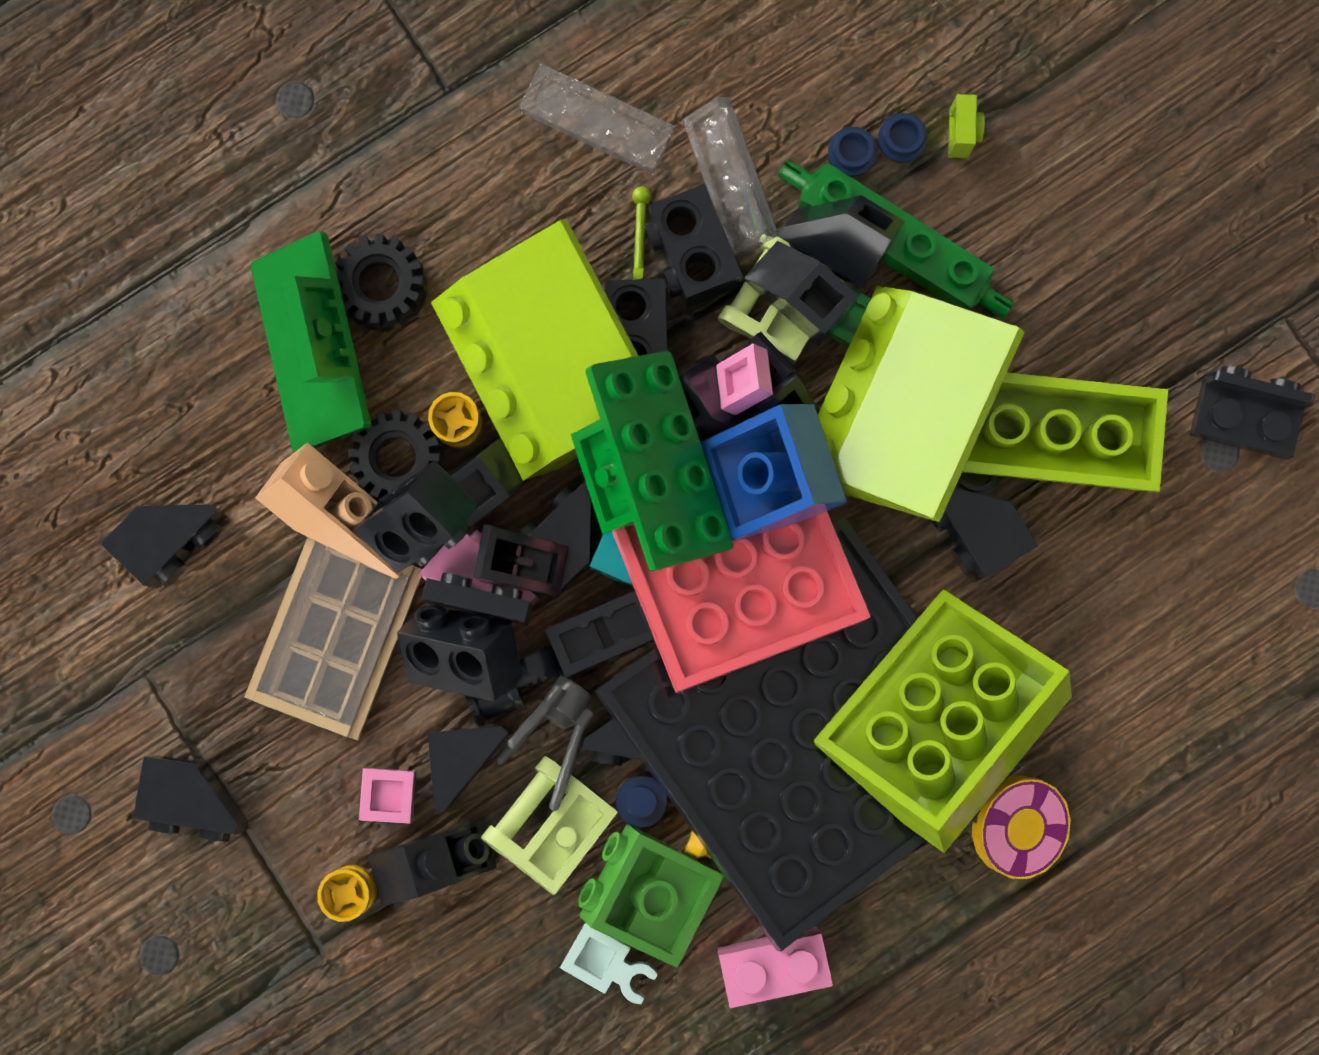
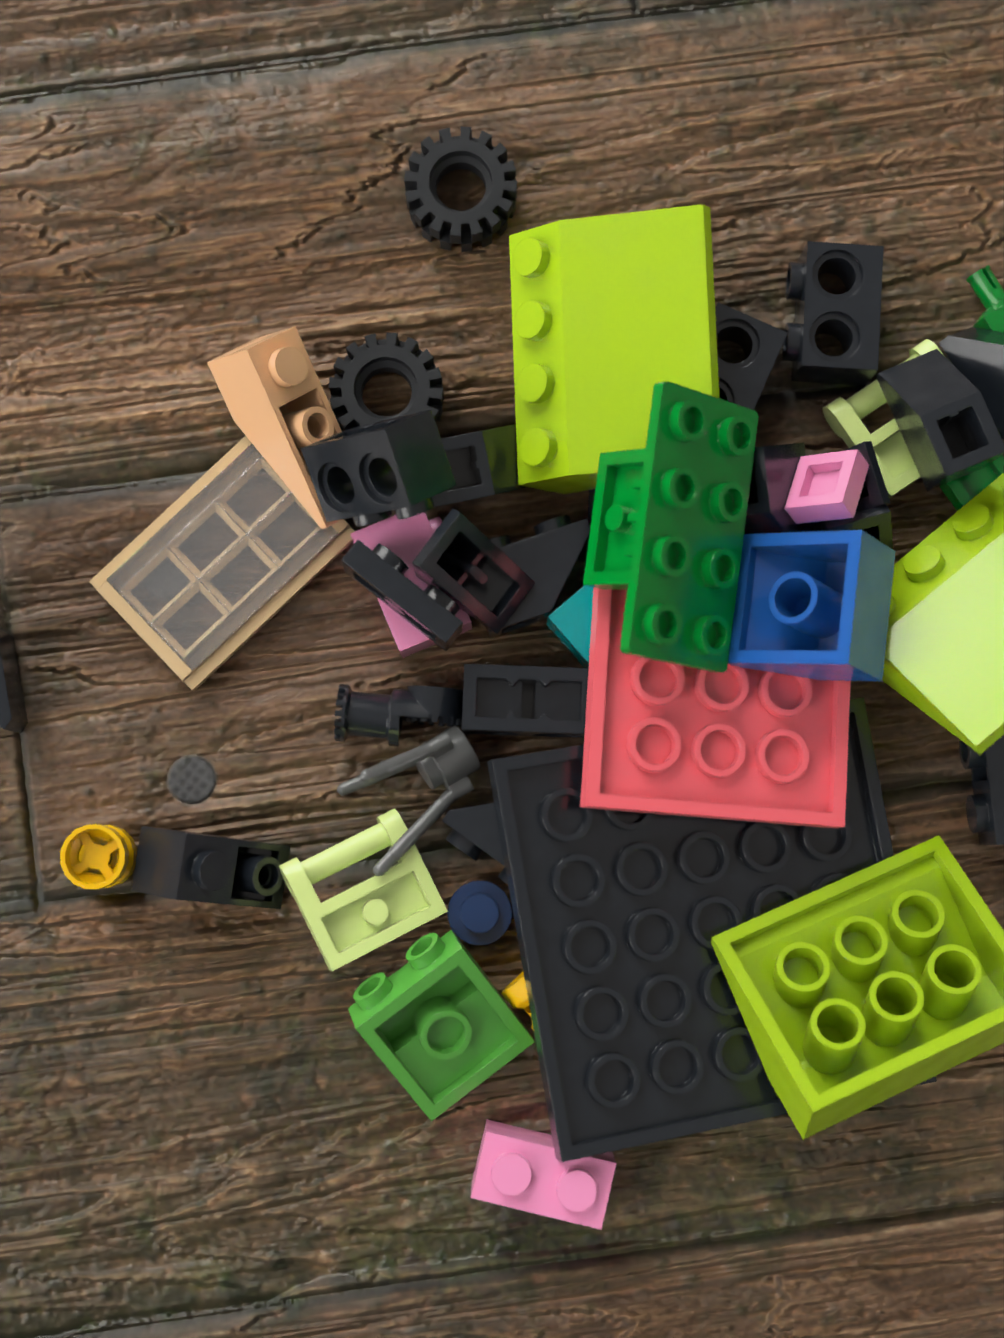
camera: 20 degrees right, 0 degrees up
(158, 540) = (81, 359): black slope -> none
(310, 342) = (352, 218): green bracket -> none
(387, 795) = (196, 768): bright pink plate -> none
(449, 415) = (473, 371): yellow wheel -> none
(459, 652) = (355, 644): black brick -> none
(459, 757) = (296, 765): black slope -> none
(596, 119) = (792, 120): clear plate -> none
(601, 959) = (347, 1072): light aqua plate -> none
(641, 197) = (800, 232): lime hinge -> none
(730, 176) = (915, 252): clear plate -> none
(1022, 827) = (902, 1152): tile -> none

